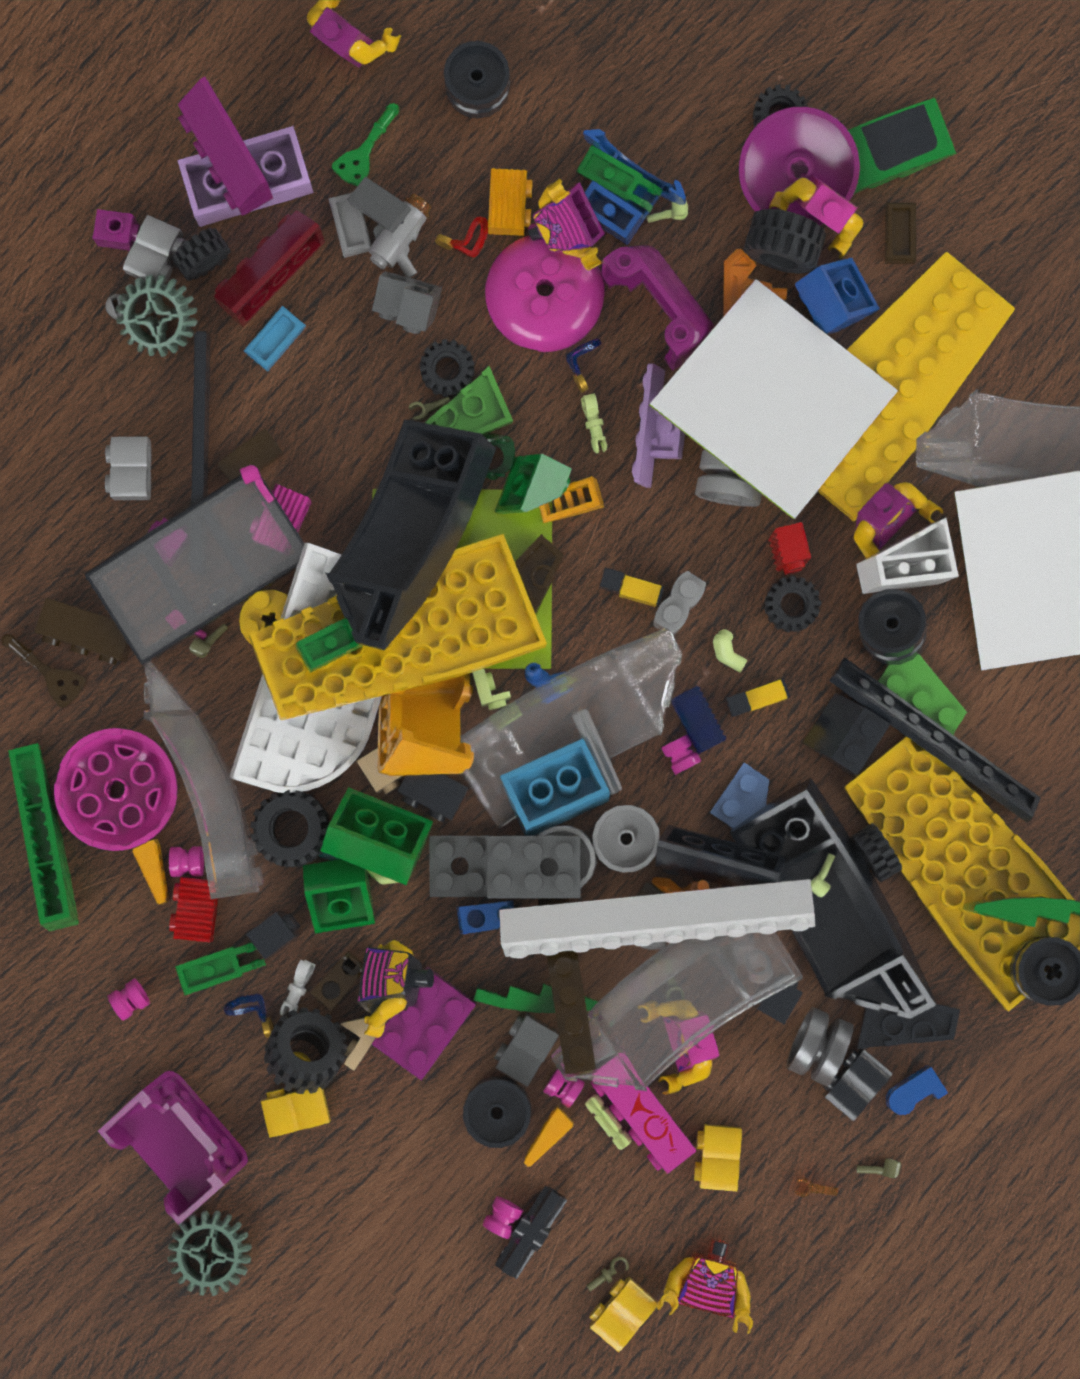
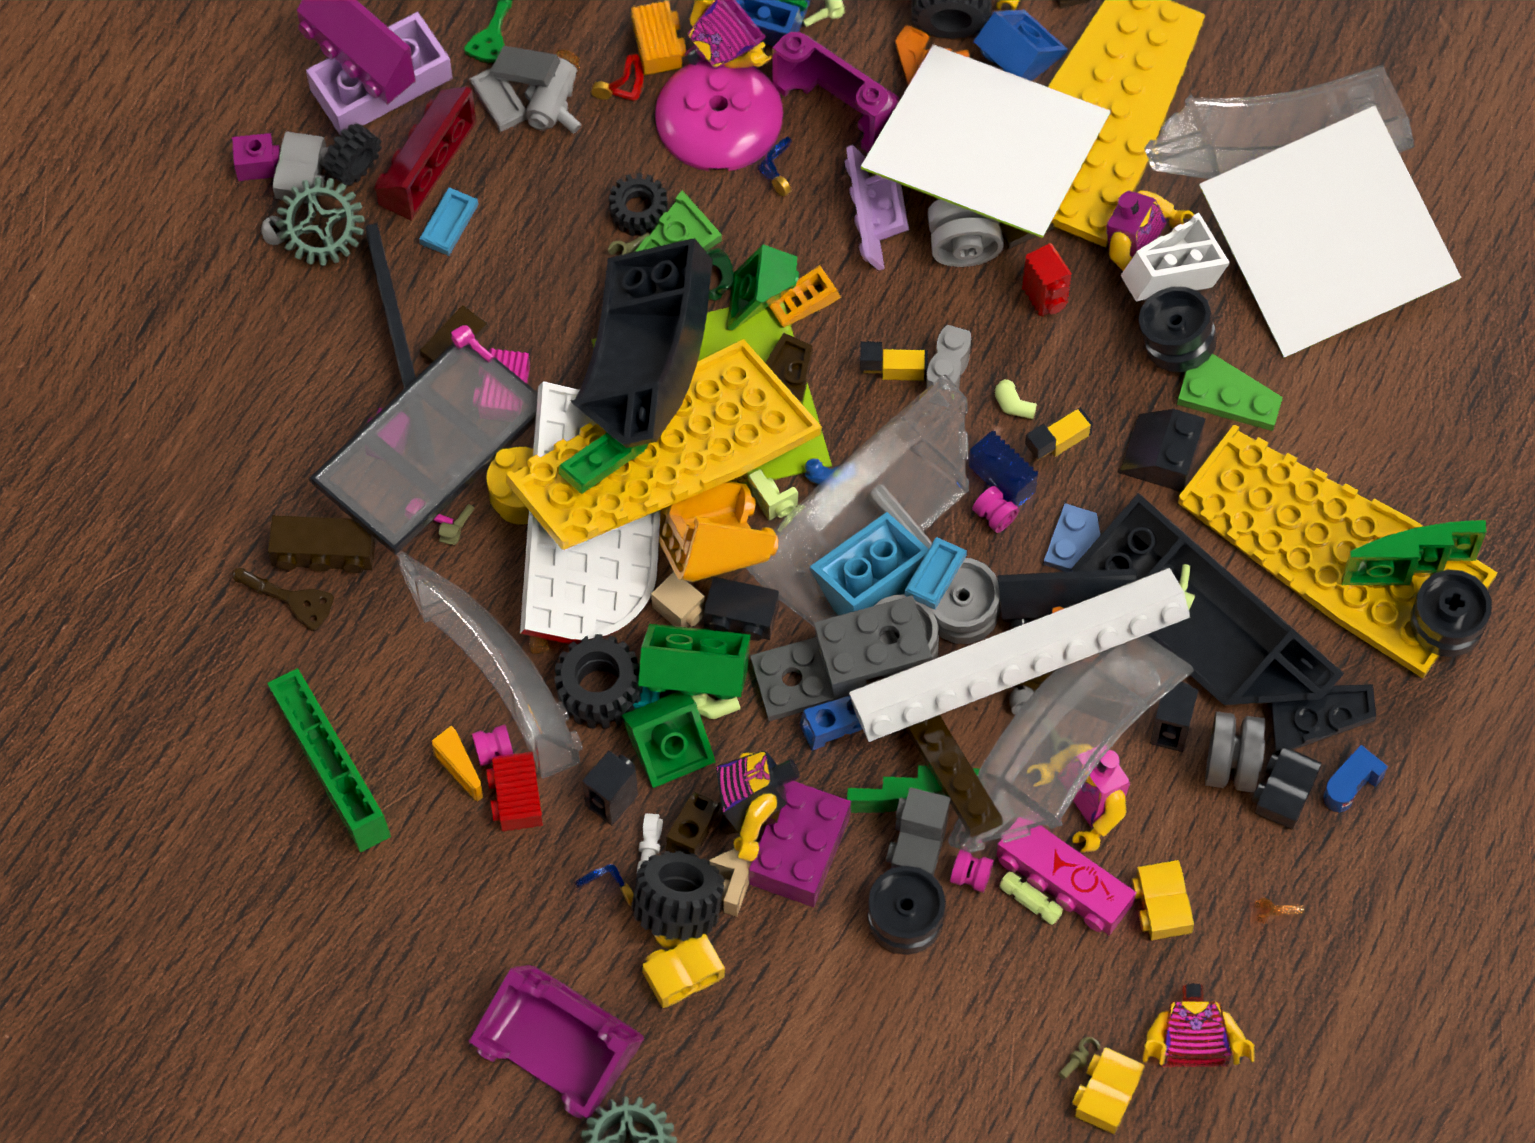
camera: 15 degrees left, 20 degrees down
(86, 783) = (391, 659): dark pink brick -> none
(128, 999) = (466, 902): dark pink wheel -> none
(129, 468) = (329, 376): light grey brick -> none
(215, 968) = (556, 846): green hinge -> none
(407, 300) = (579, 146): dark grey brick -> none
(503, 1215) = (945, 1023): dark pink wheel -> none
(531, 1232) = (980, 1031): black piece -> none
(553, 1130) = (975, 915): light orange slope -> none
(591, 411) = (798, 207): yellowish green piece -> none
(606, 817) = (935, 573): none -> dark azure tile
(805, 591) = (1066, 322): black tyre -> none
(876, 852) = (1233, 547): black tyre -> none
(891, 1168) = (1353, 870): olive hand -> none
(935, 739) = (1259, 427): black tile -> none

